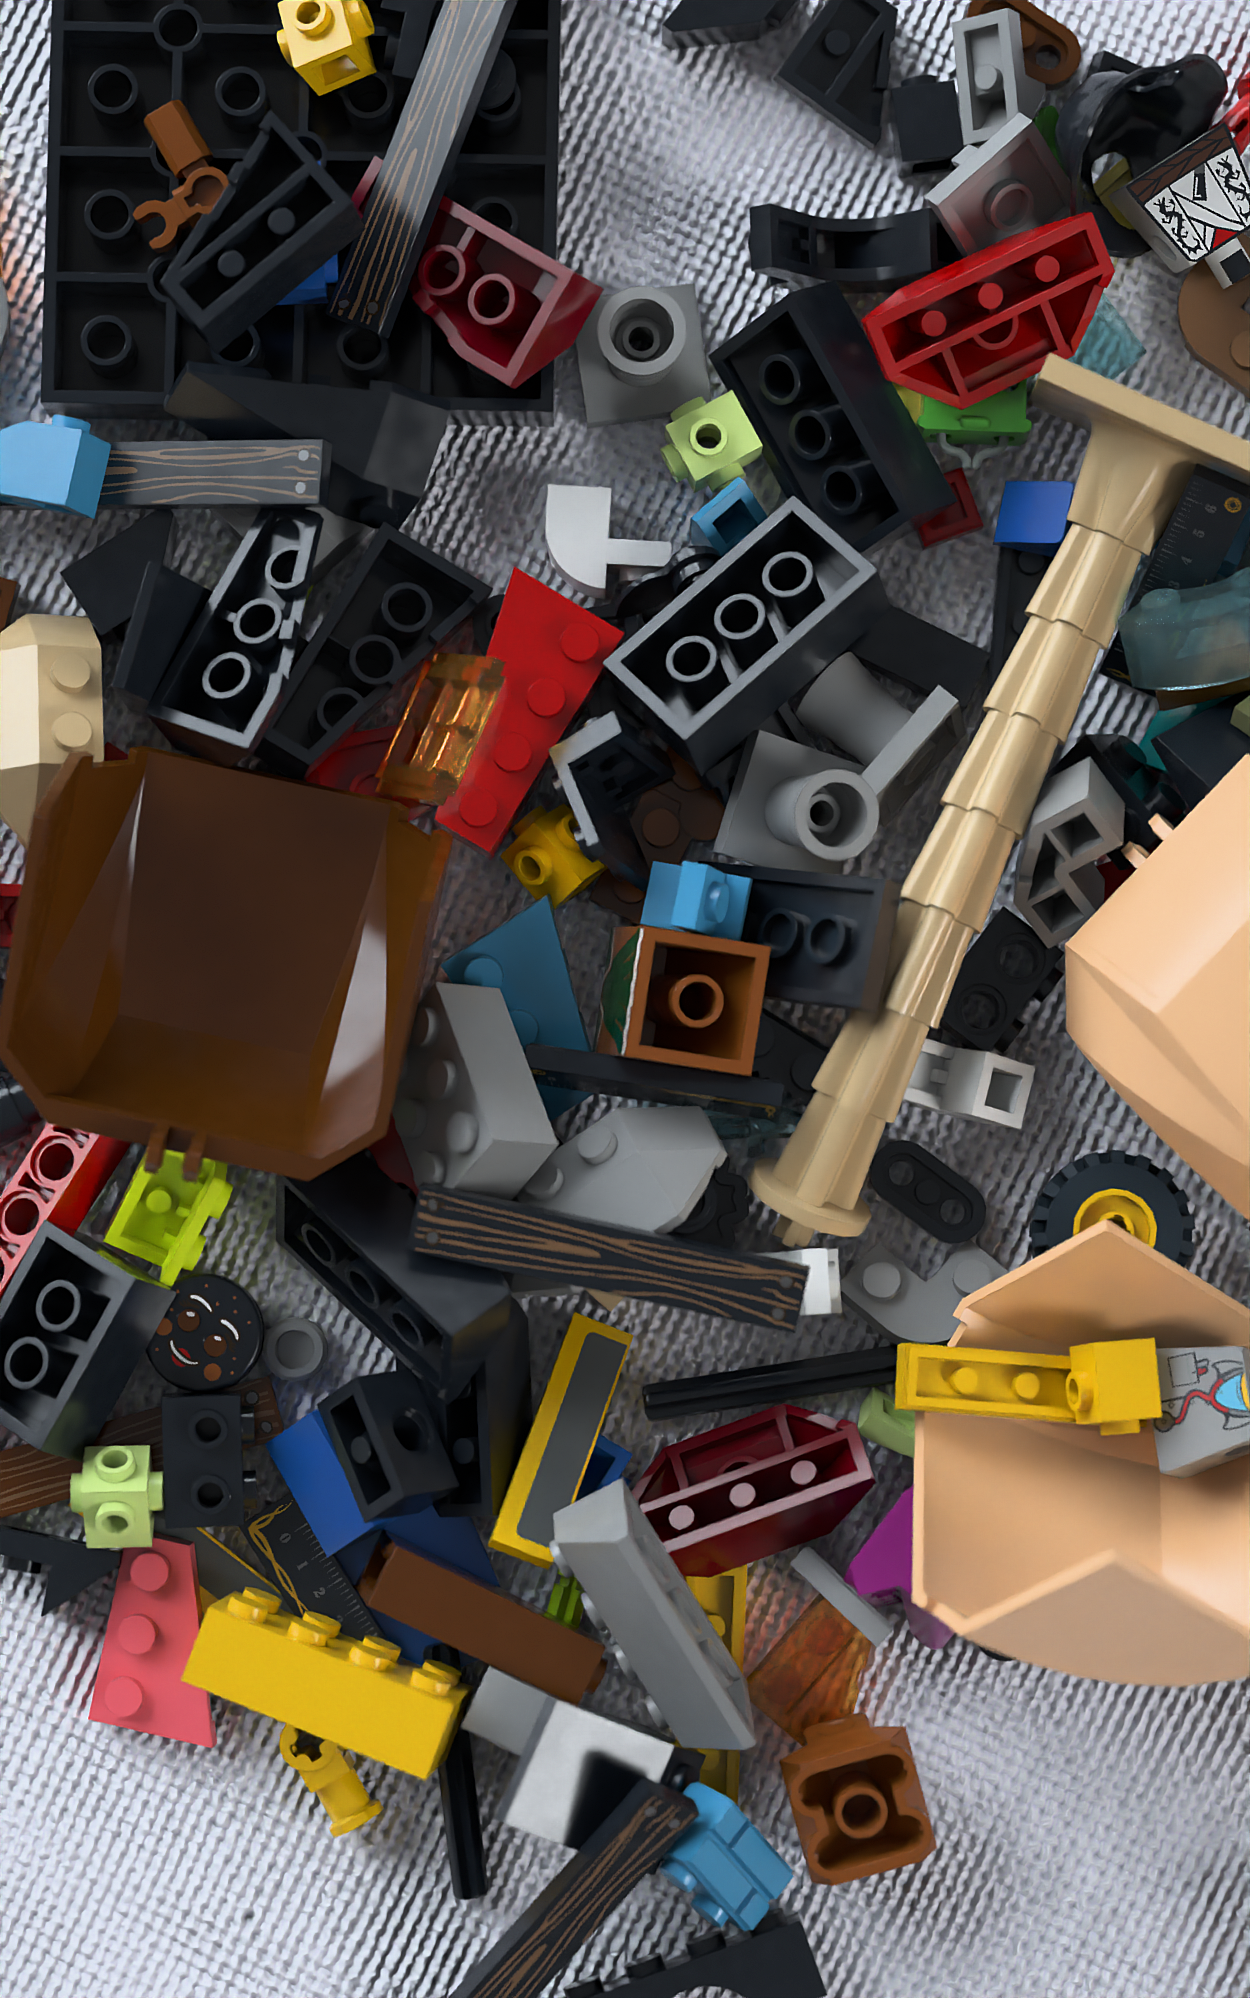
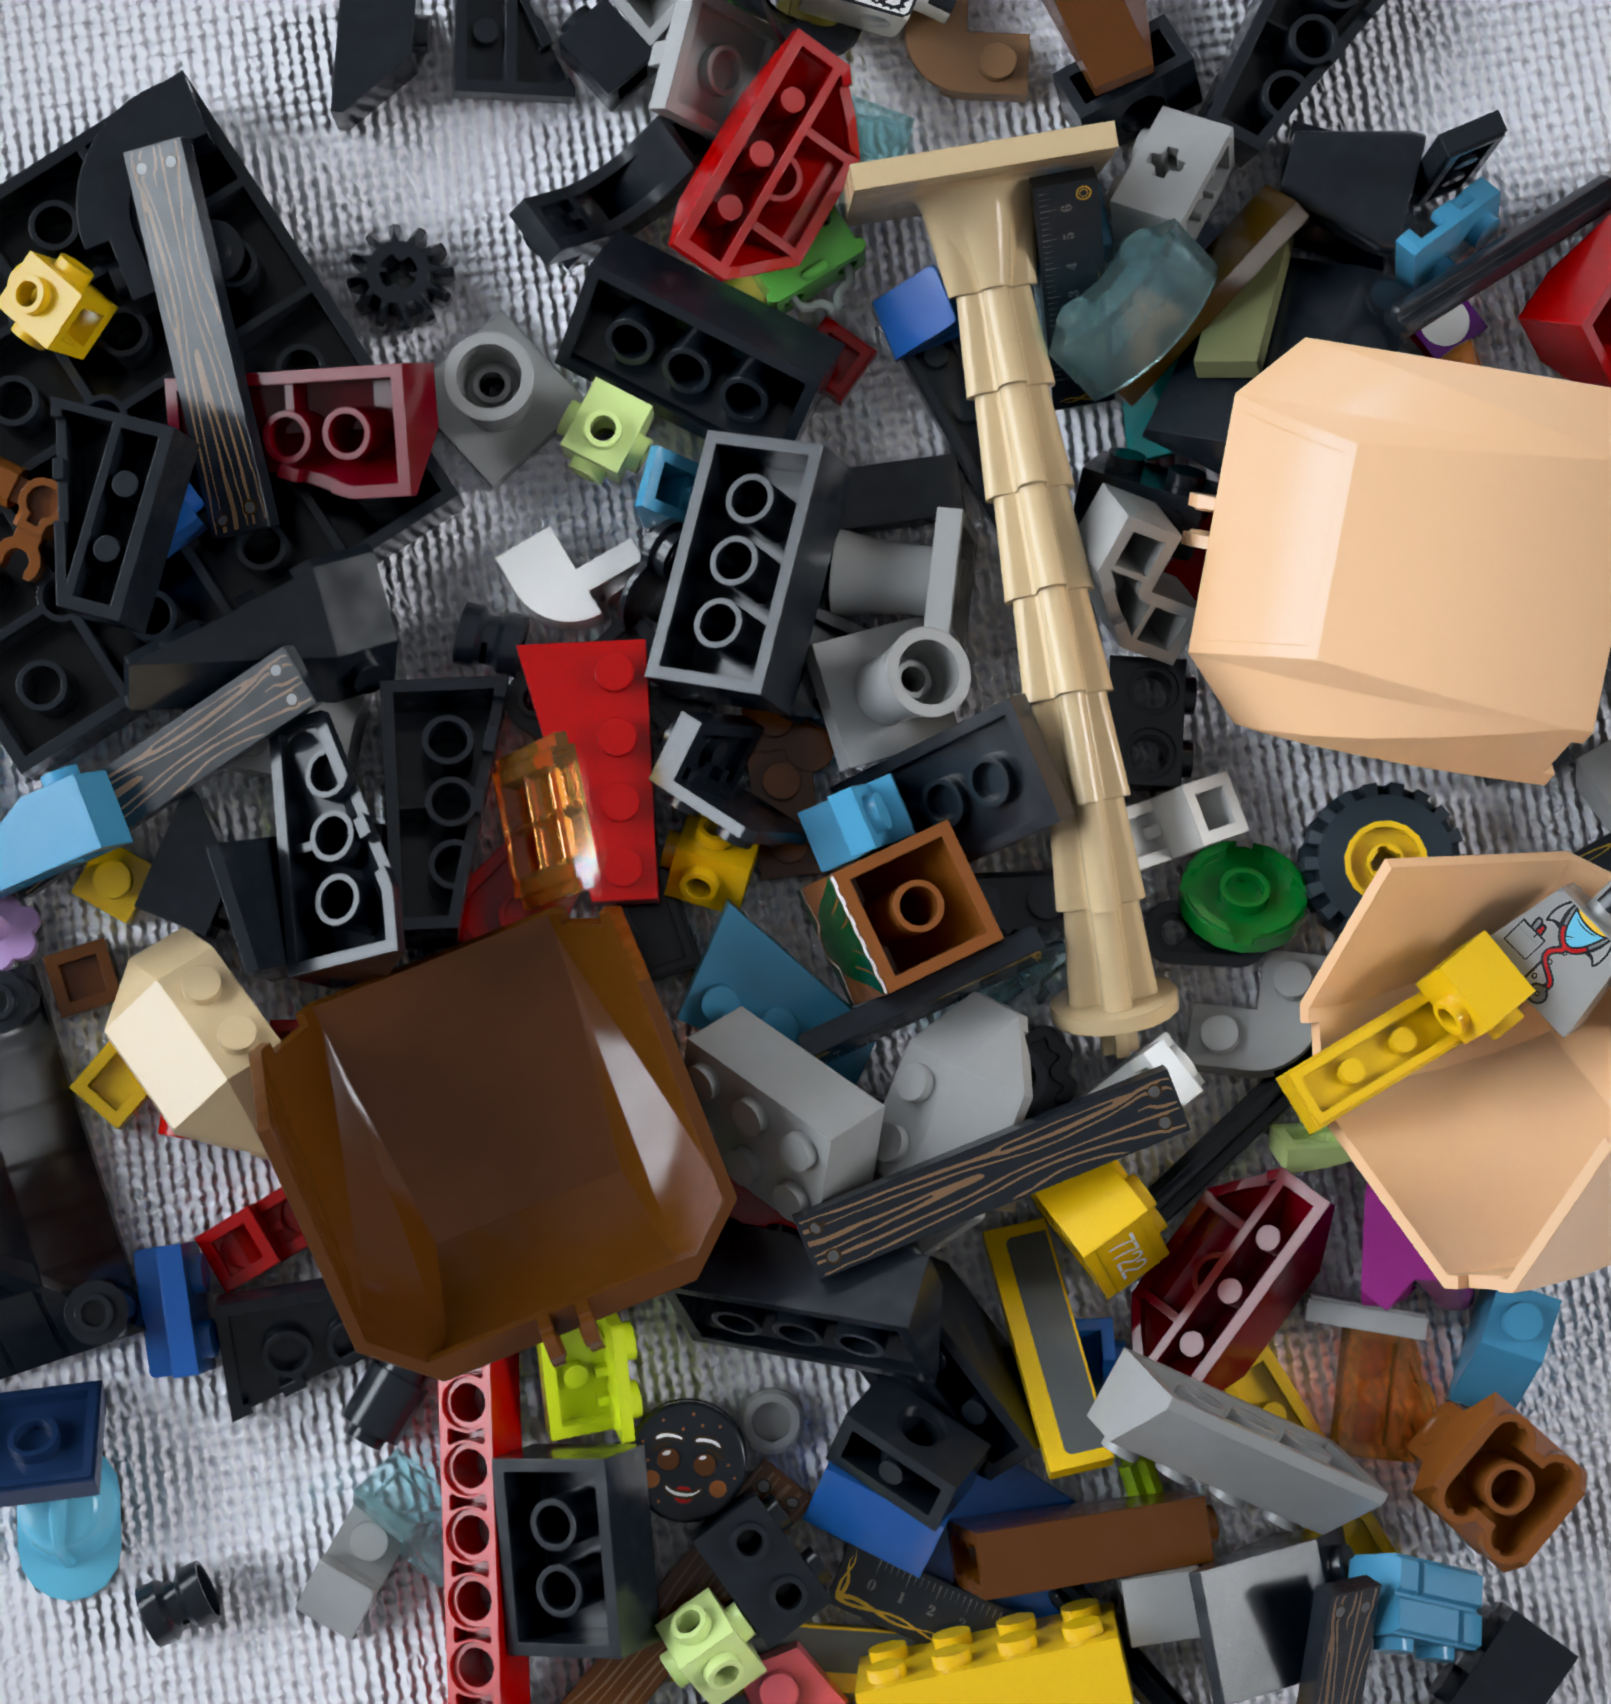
camera: 40 degrees left, 0 degrees up
(55, 543) = (113, 883): none -> yellow plate
(474, 887) = (662, 932): none -> black tile
(499, 548) = (490, 639): none -> black wheel
(647, 190) = (411, 259): none -> black gear
(678, 1370) = (1106, 1224): none -> yellow brick
(943, 1698) = (1503, 1346): none -> dark azure slope
(978, 1181) = (1242, 897): none -> green tile

